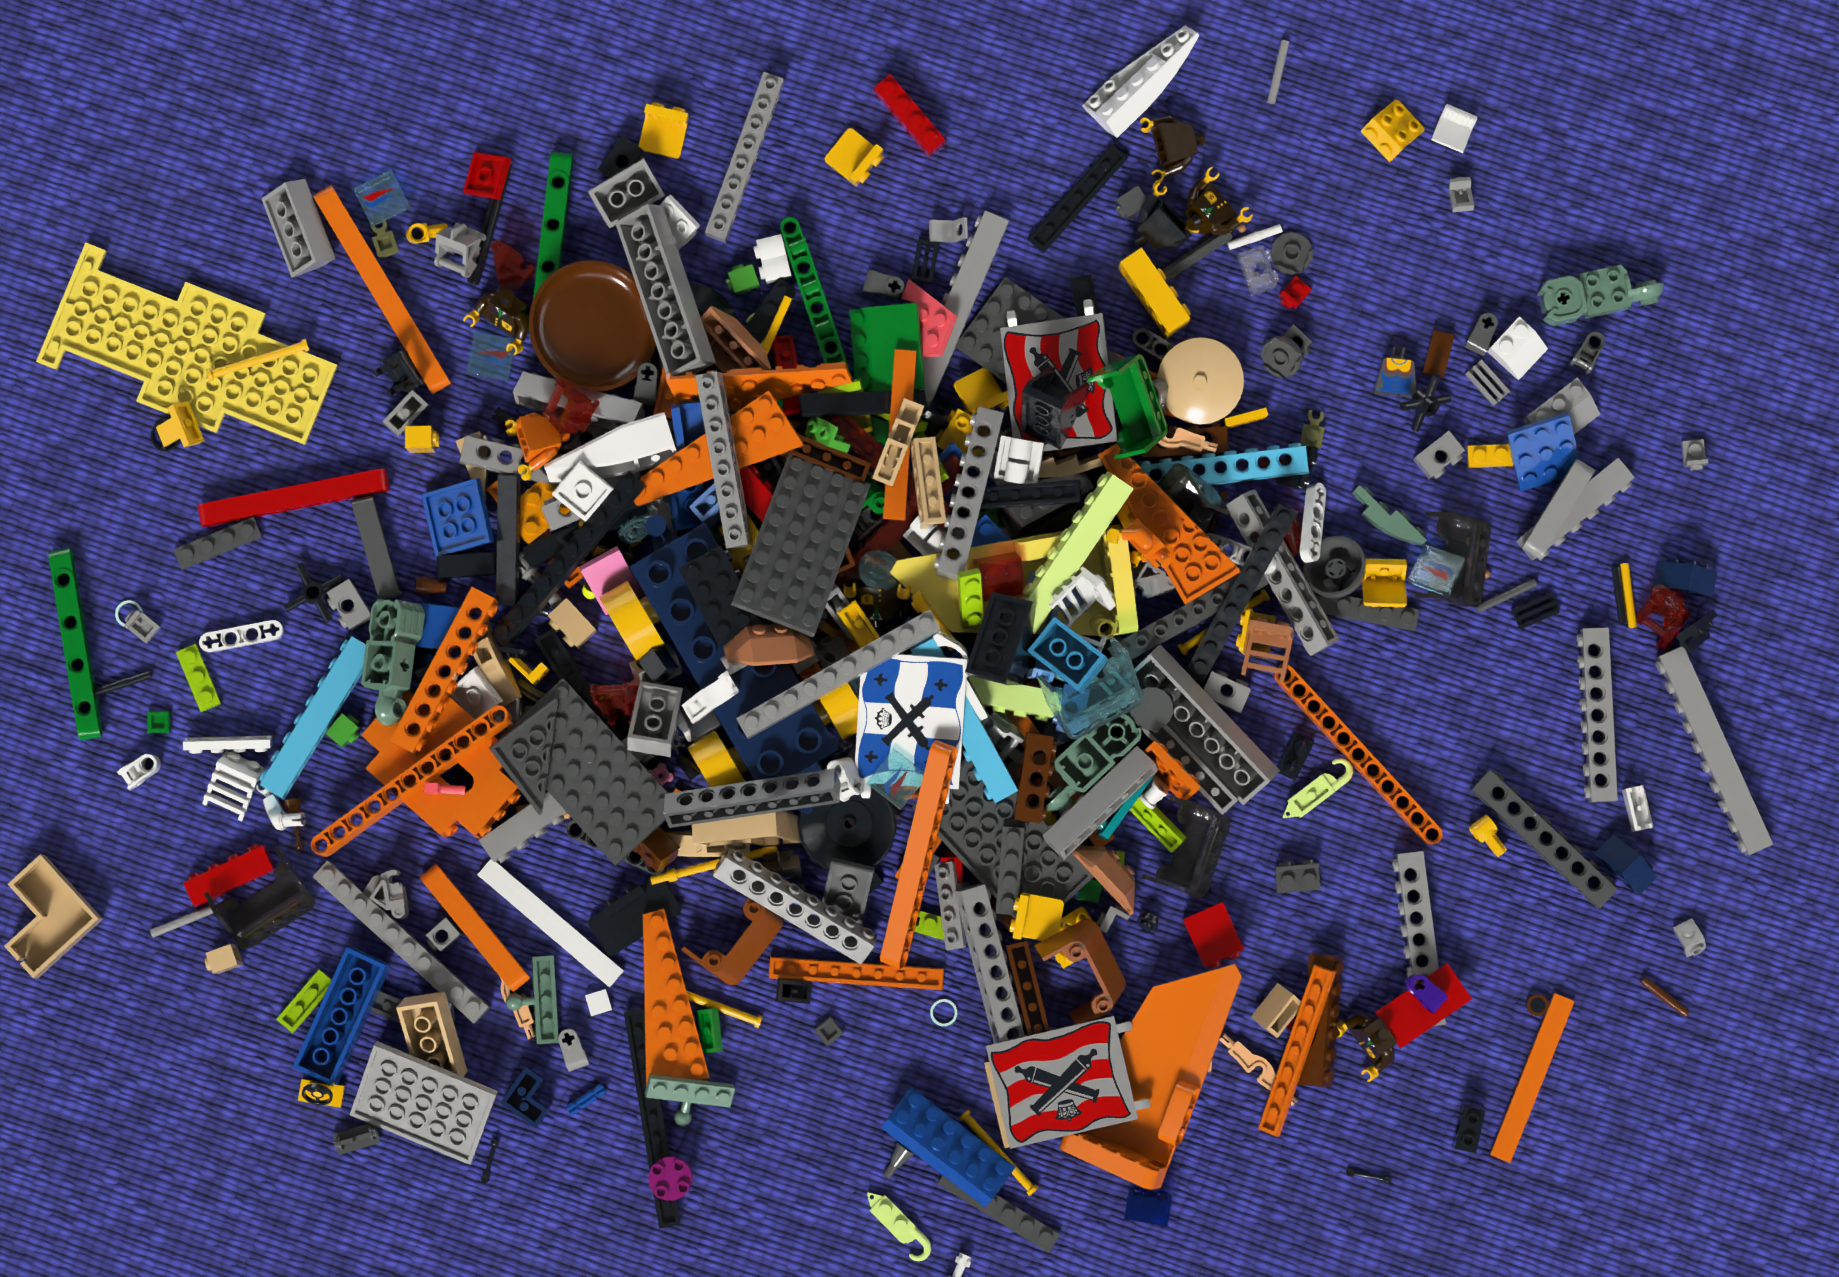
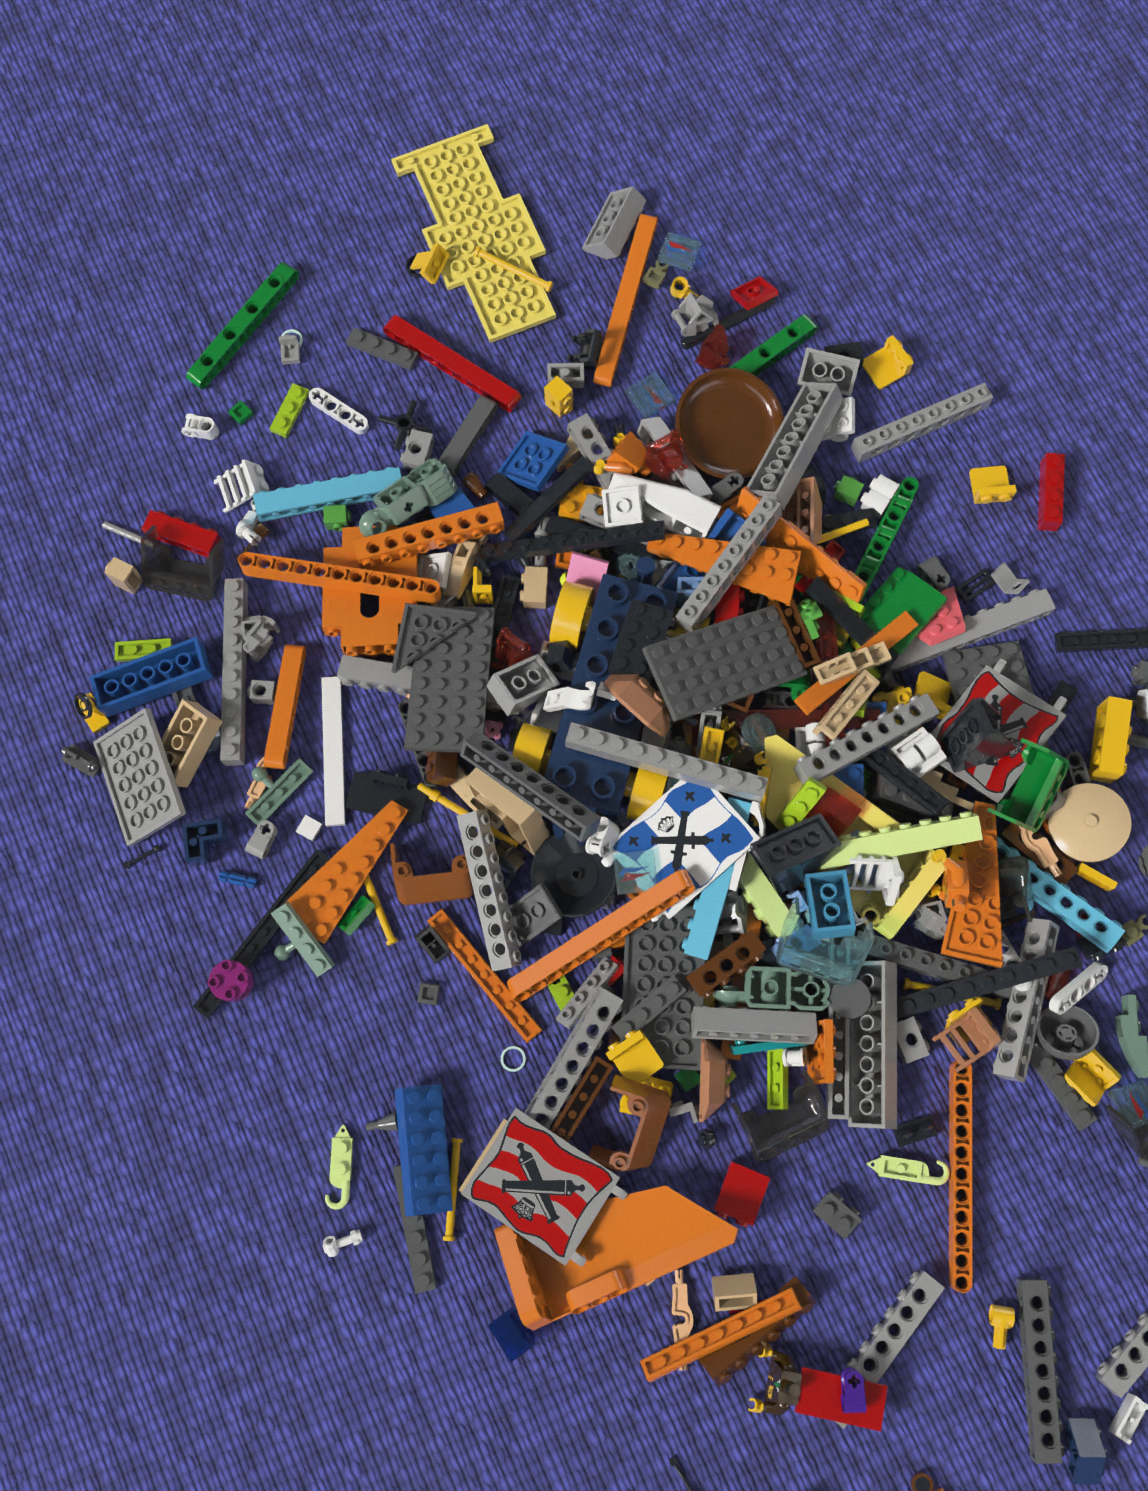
camera: 55 degrees right, 10 degrees down
(60, 918) = (64, 461): tan piece -> none
(122, 683) = (245, 372): black piece -> none
(237, 743) = (258, 456): white plate -> none
(436, 788) = (348, 596): coral bar -> none
(506, 313) = (682, 370): dark brown torso -> none

